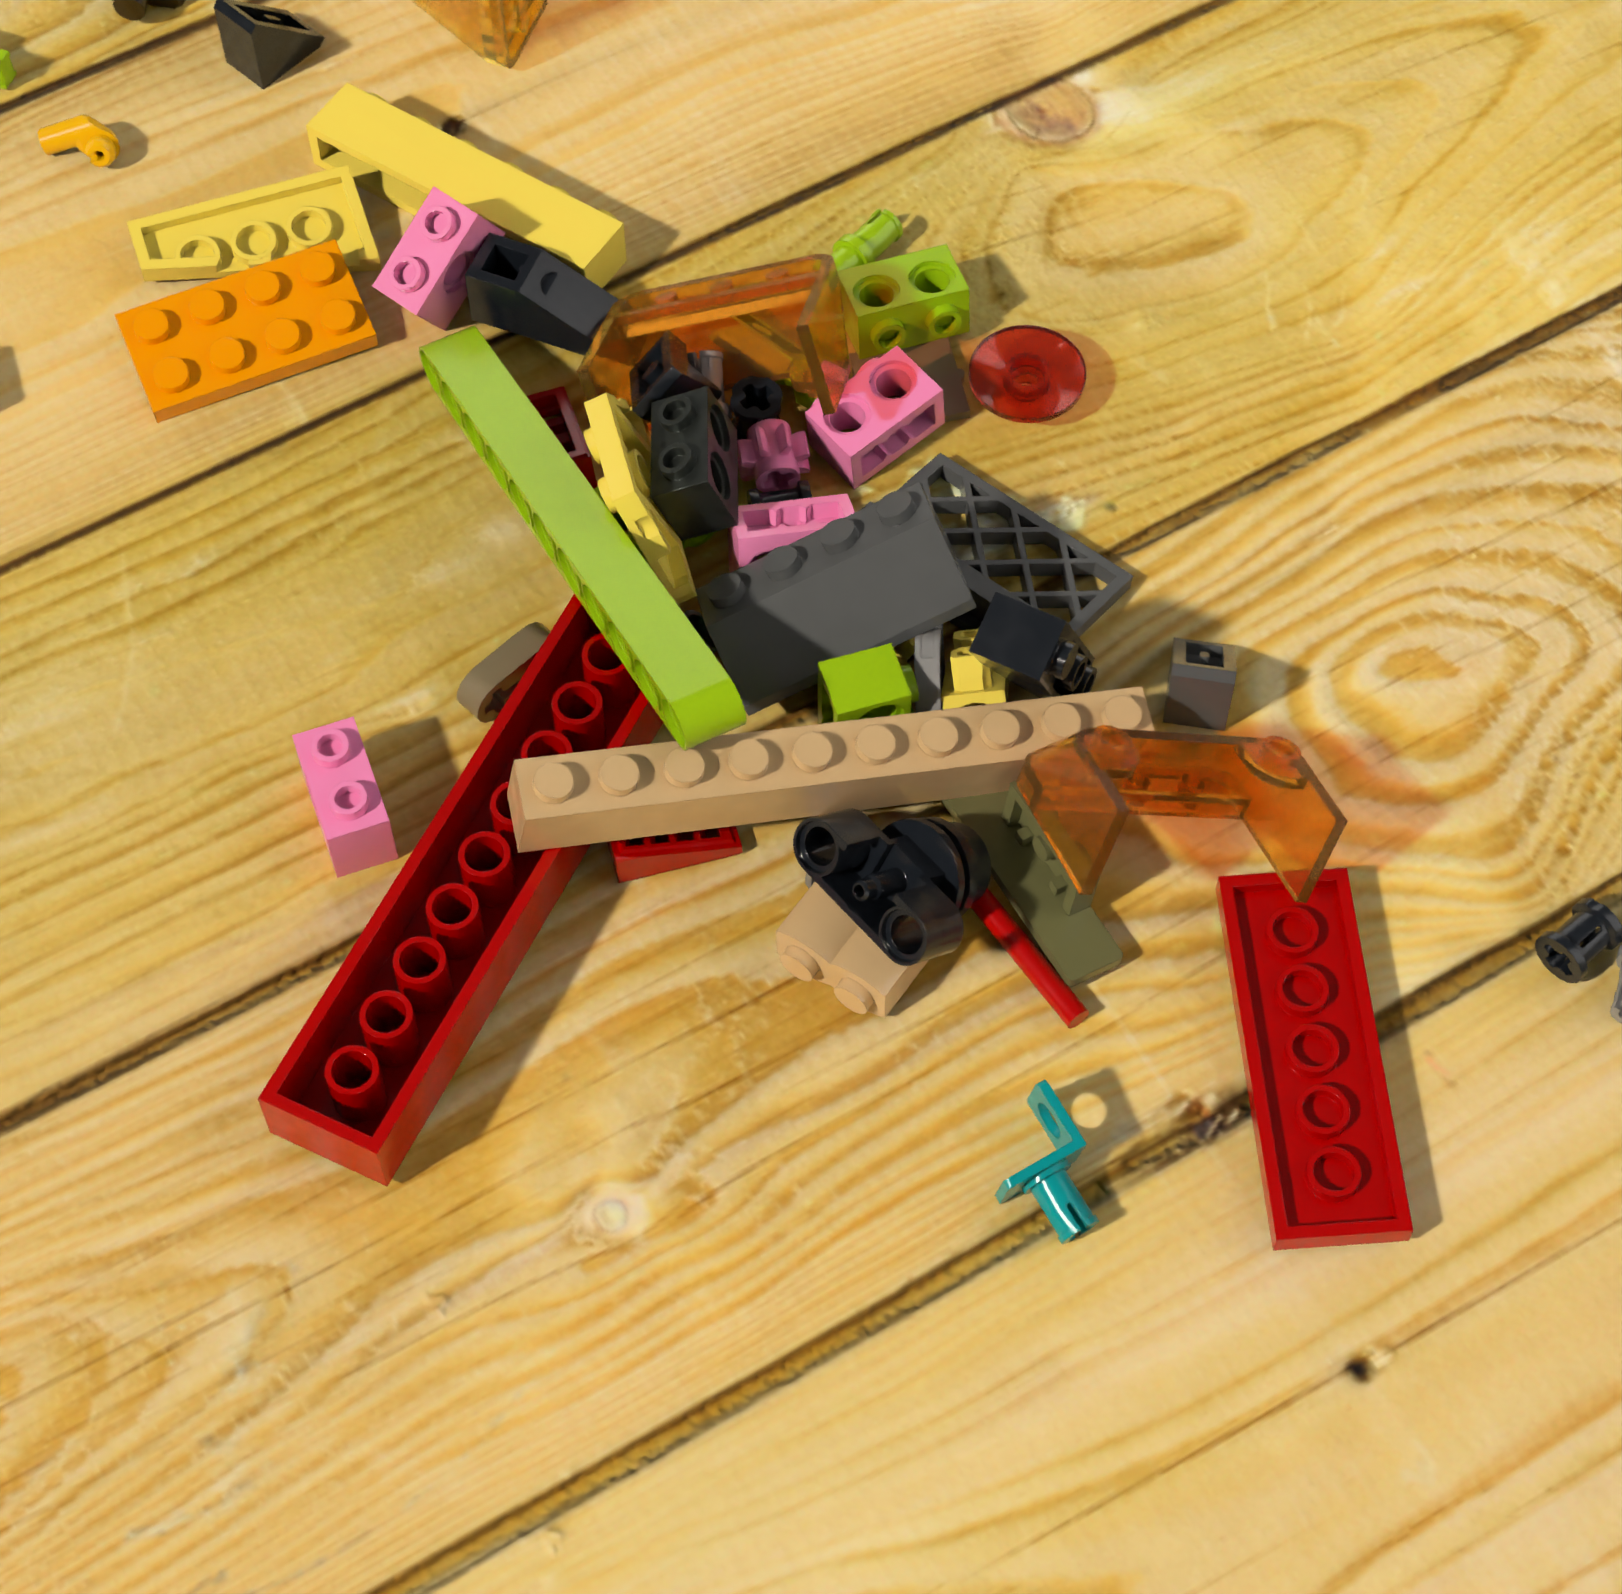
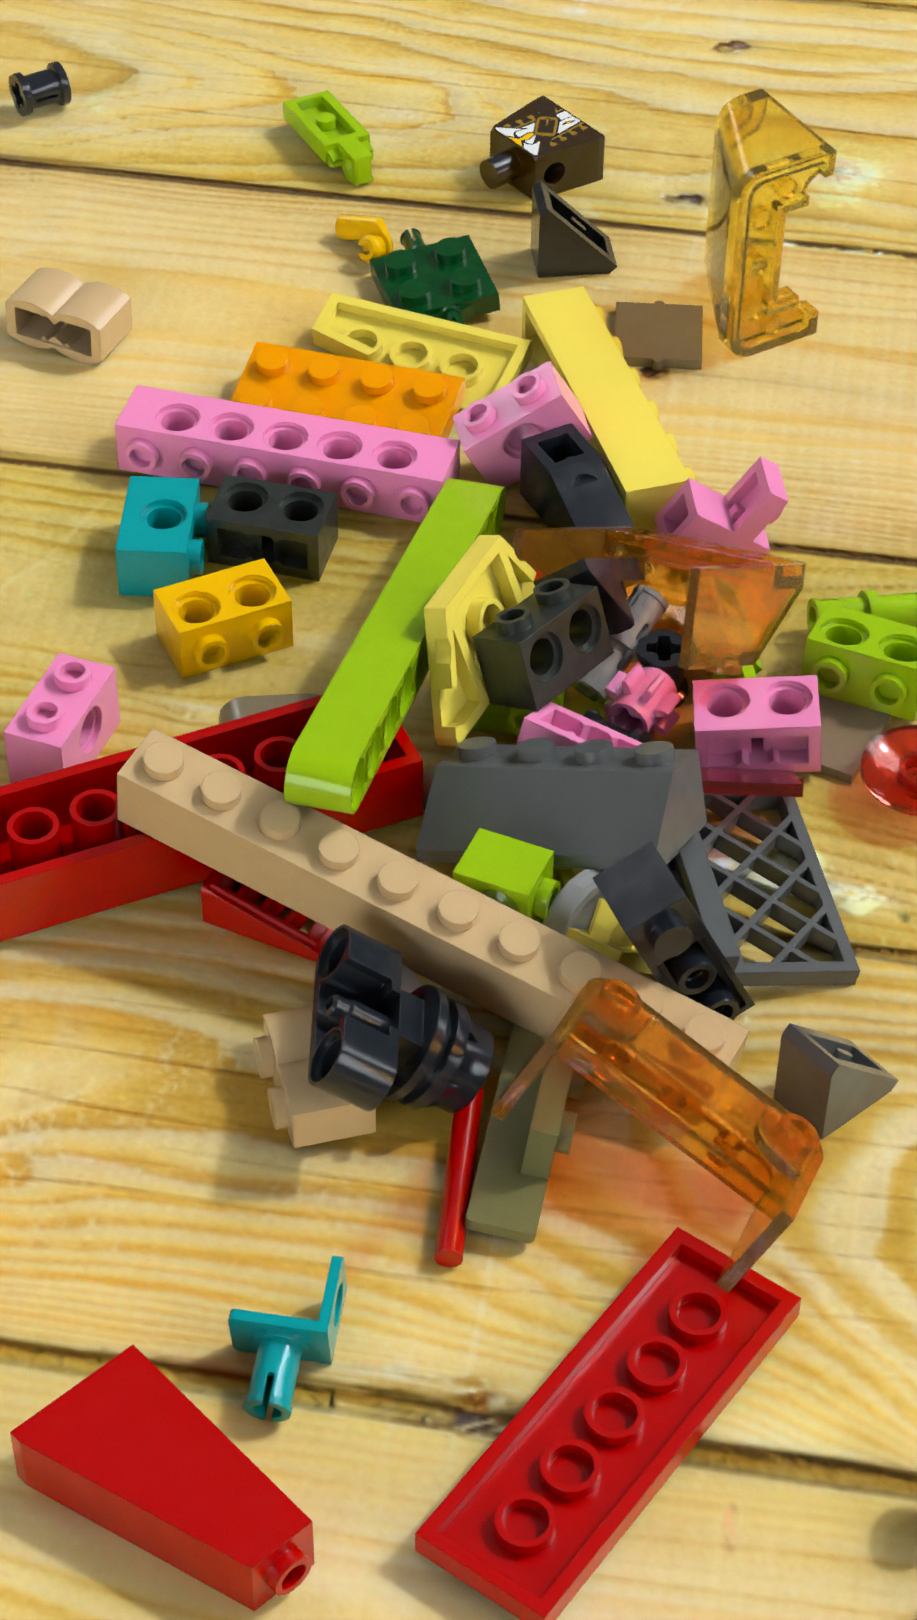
camera: 40 degrees right, 15 degrees down
(189, 150) = (436, 278): none -> dark green plate
(239, 590) = (160, 534): none -> teal brick
(250, 411) = (210, 438): none -> bright pink brick
(323, 490) = (275, 522): none -> pearl dark grey brick
(355, 599) = (223, 618): none -> yellow brick
(428, 83) = (660, 334): none -> dark tan piece
(681, 241) = (731, 518): none -> bright pink brick
(926, 461) = (751, 782): none -> clear red piece
(1078, 1337) = (167, 1480): none -> red slope

